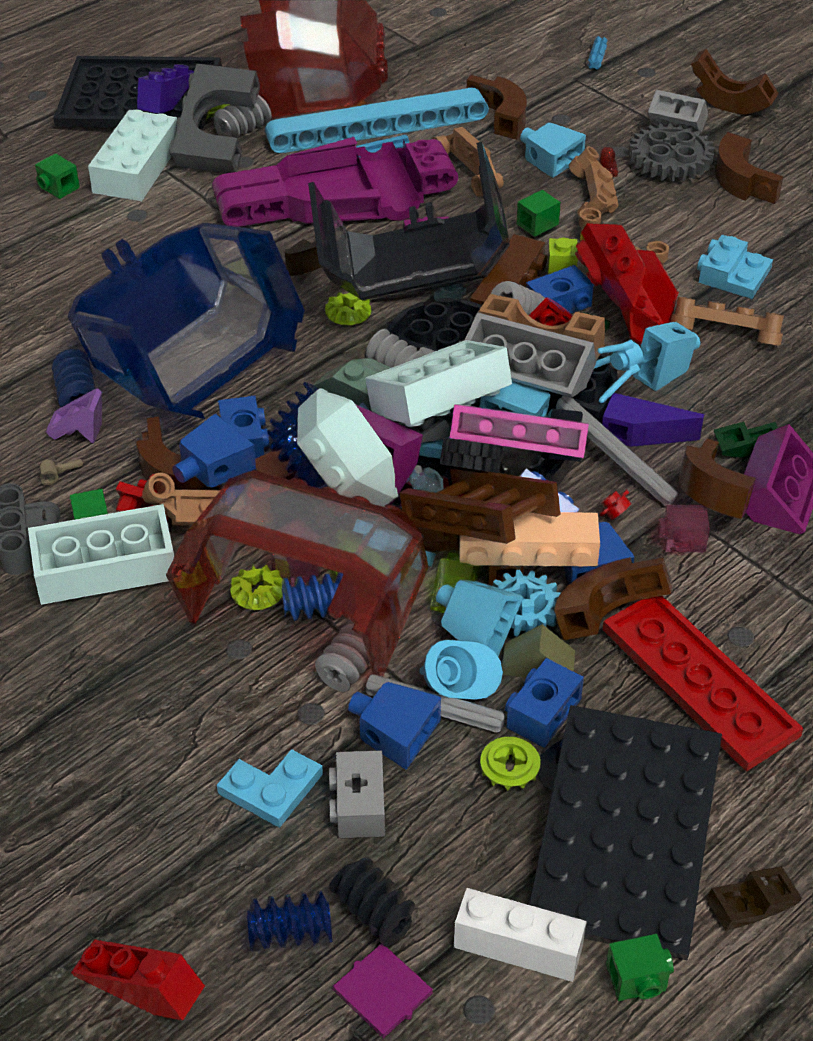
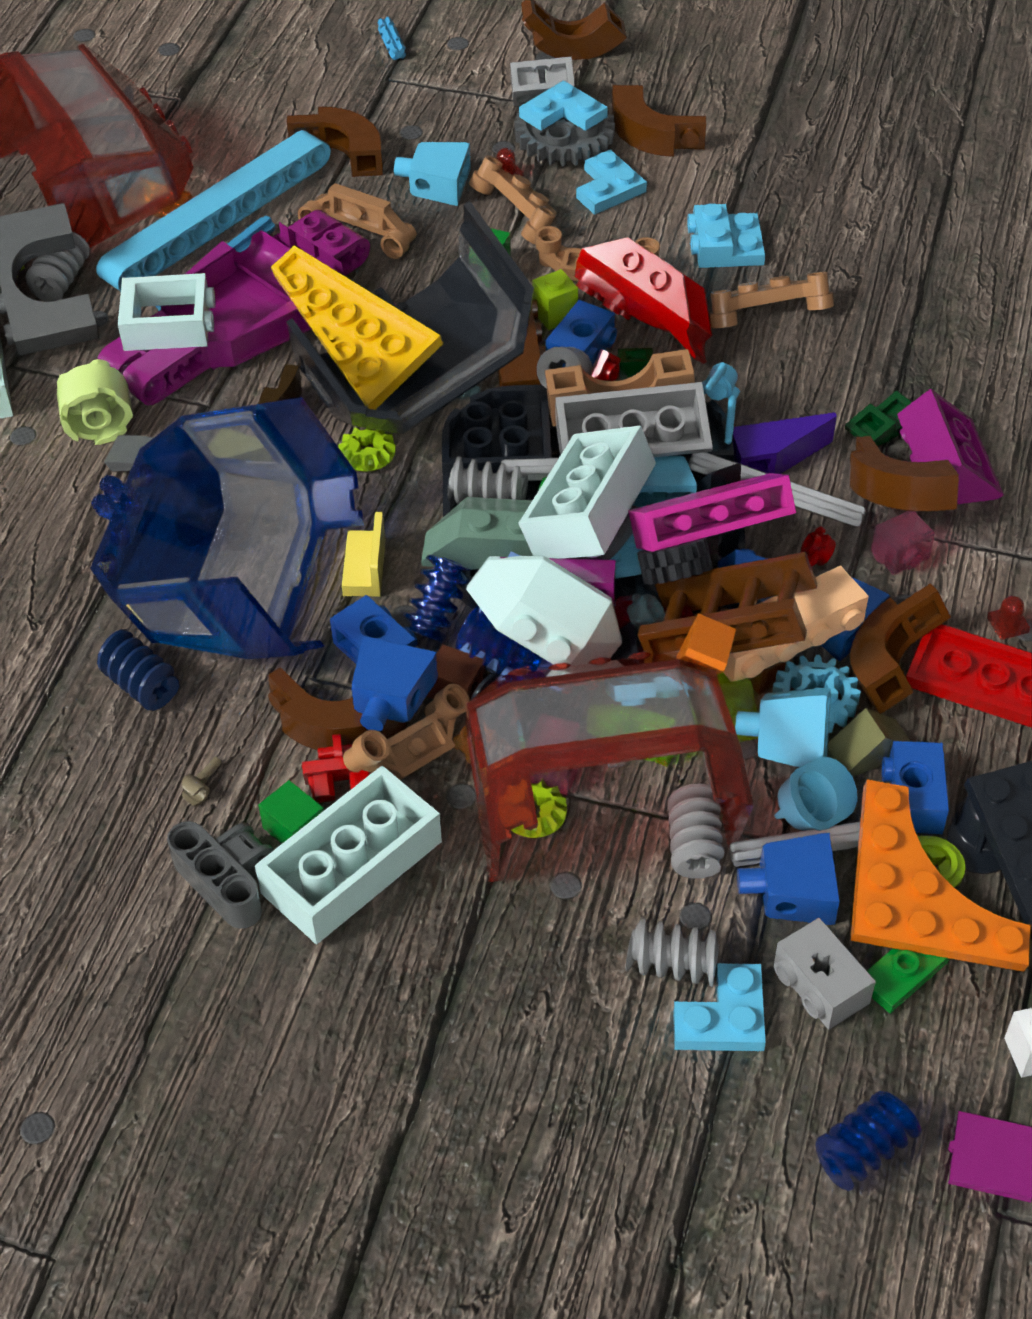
camera: 30 degrees left, 5 degrees up
(81, 415) = (180, 705): medium lavender slope -> none
(141, 976) = (768, 1279): red slope -> none
(185, 204) = (94, 402): none -> yellowish green brick
(248, 171) = (165, 331): none -> light aqua window
(263, 724) = (673, 952): none -> light grey piece
(284, 377) = (364, 560): none -> light yellow panel
(309, 596) = (608, 787): blue piece -> none
(373, 900) = (927, 1071): black piece -> none
(392, 223) = (362, 333): none -> yellow wing
(427, 824) = (901, 975): none -> green plate
(433, 517) = (708, 643): none -> orange slope
(462, 776) = (910, 905): none -> orange plate
(666, 354) = (746, 351): medium azure torso -> none
(677, 129) = (561, 102): none -> medium azure plate
(682, 201) = (612, 182): none -> medium azure plate
(729, 620) = (1009, 619): none -> clear red piece

